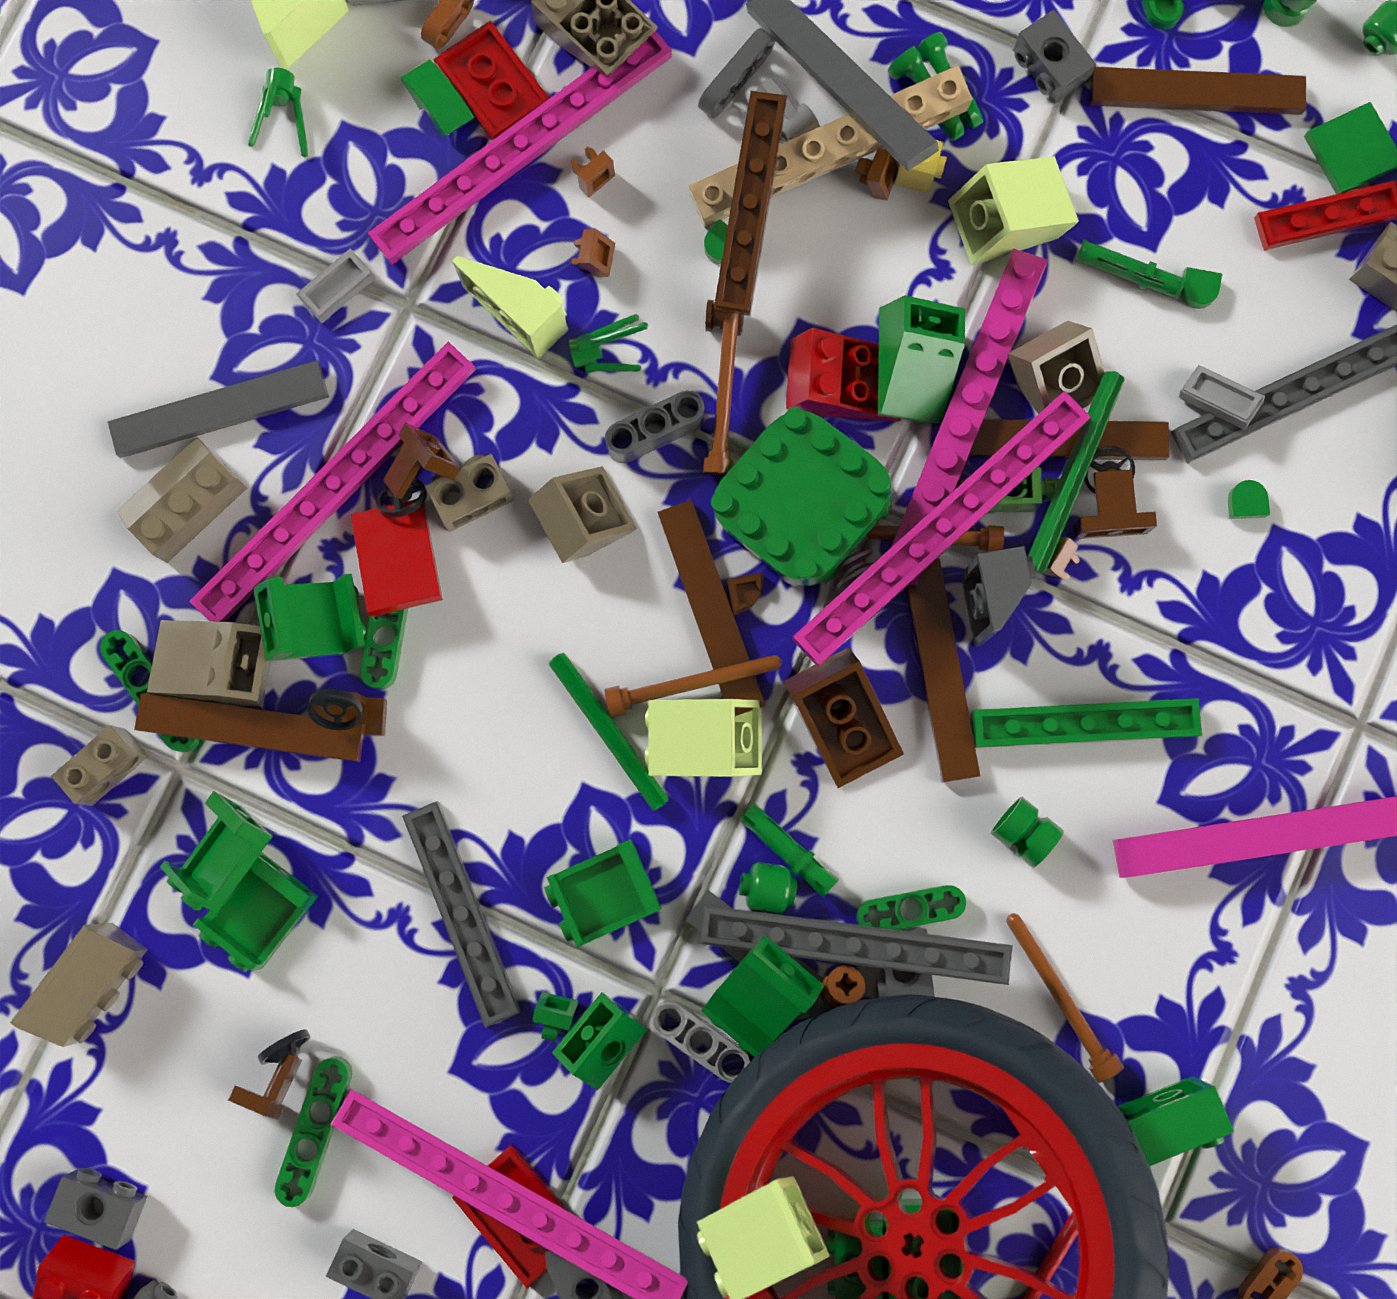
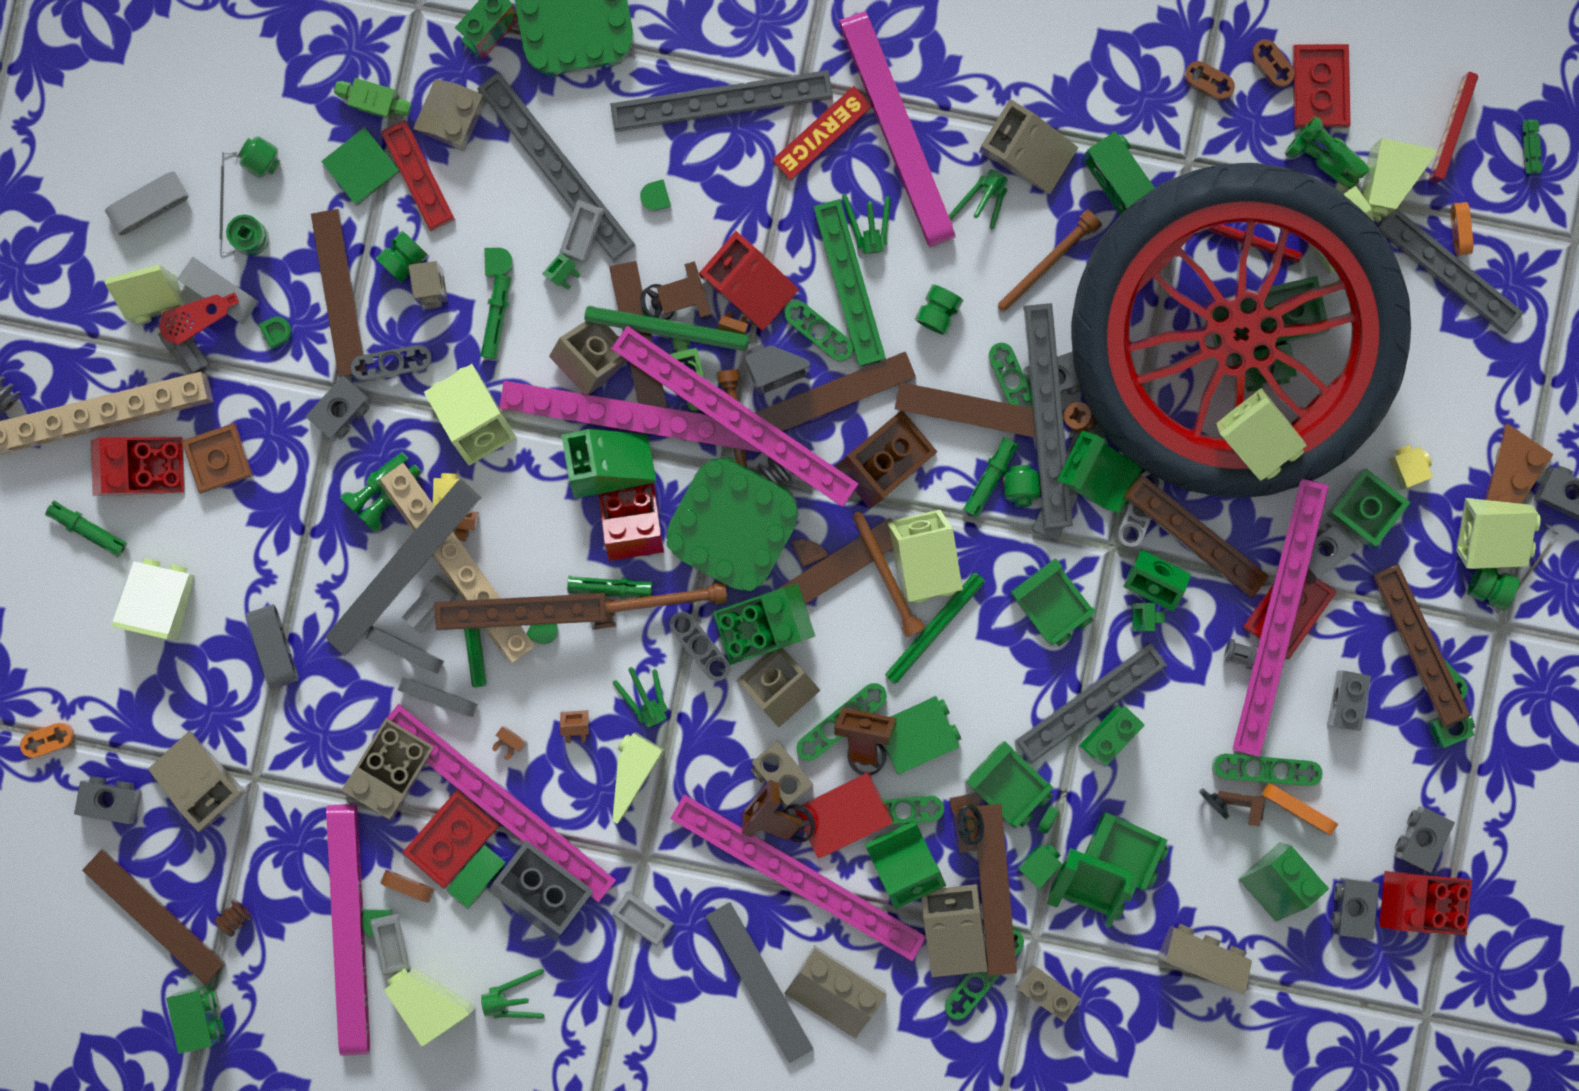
camera: 110 degrees left, 5 degrees up
(152, 1117) = (1283, 882): none -> green slope
(247, 1163) = (1299, 809): none -> orange beam
(266, 795) = (1040, 864): none -> green brick
(324, 821) = (1048, 819): none -> green tile
(383, 783) = (1010, 782): none -> green panel
(398, 165) = (540, 890): none -> dark grey slope
(406, 928) = (1111, 735): none -> green panel
(474, 675) = (921, 735): none -> green panel
(475, 1132) = (1240, 654): none -> dark grey bush
(489, 603) = (864, 734): none -> reddish brown piece
(513, 585) = (833, 718): none -> green beam
(647, 1109) = (1195, 536): none -> reddish brown tile
(664, 512) = (764, 624): none -> green slope
(668, 99) = (437, 697): none -> dark grey beam
(703, 155) = (475, 657): none -> green axle
(752, 348) = (611, 587): none -> green pin
(886, 837) = (965, 409): none -> reddish brown tile
(1043, 645) = (798, 323): none -> green beam
(1089, 103) = (412, 366): none -> dark grey beam
(1116, 591) = (748, 281): none -> red slope
(1135, 766) = (871, 241): none -> green plant
(1175, 359) = (559, 270): none -> green tile
(1179, 941) = (992, 185): none -> green plant
(1192, 189) = (428, 284): none -> dark tan brick
(1226, 1005) = (1028, 147): none -> dark tan slope
(1231, 169) = (401, 255): none -> green wheel
(1292, 734) = (822, 133): none -> red tile
(1358, 615) = (721, 101): none -> dark grey tile

